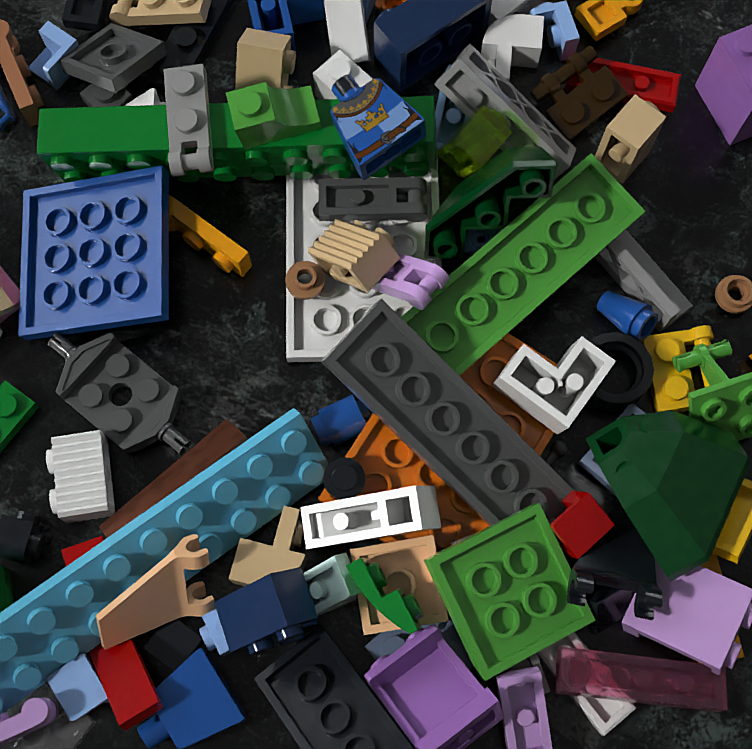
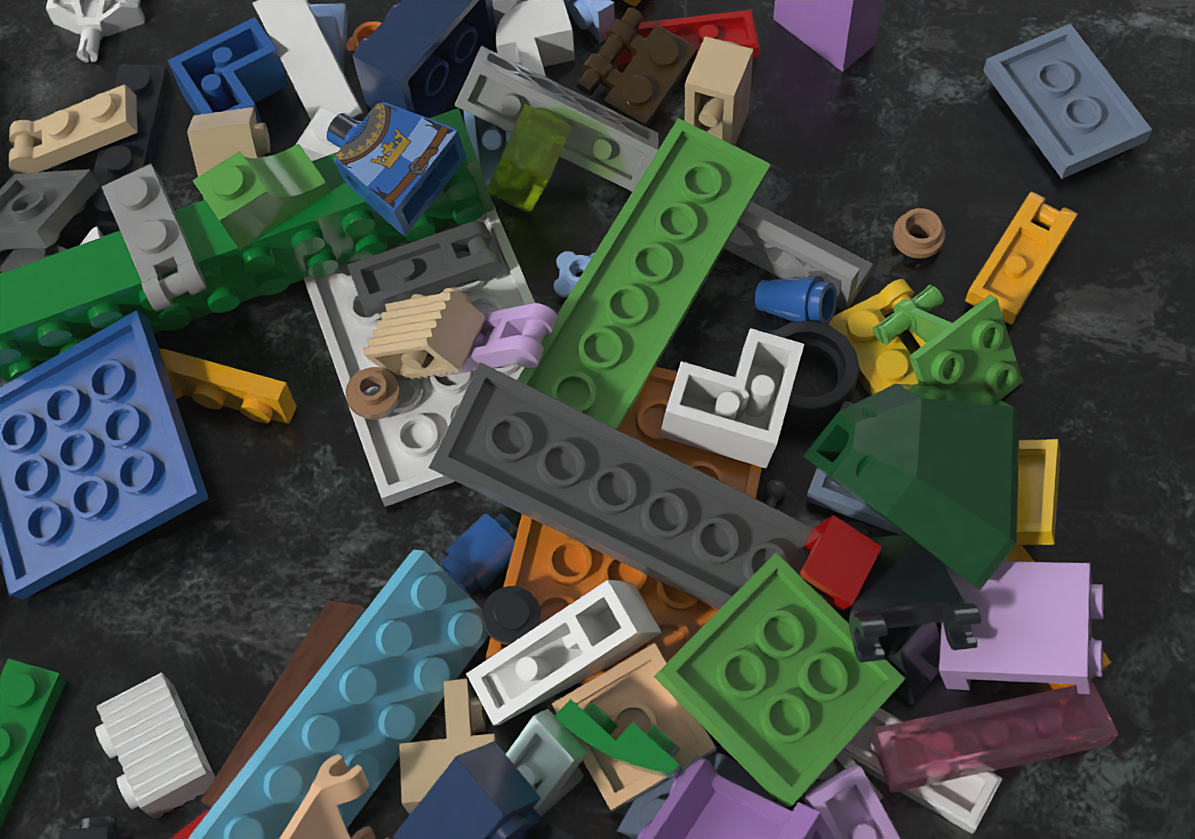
camera: 15 degrees left, 10 degrees down
(101, 368) = (138, 597): dark grey plate -> none
(490, 199) = (574, 212): dark green brick -> none

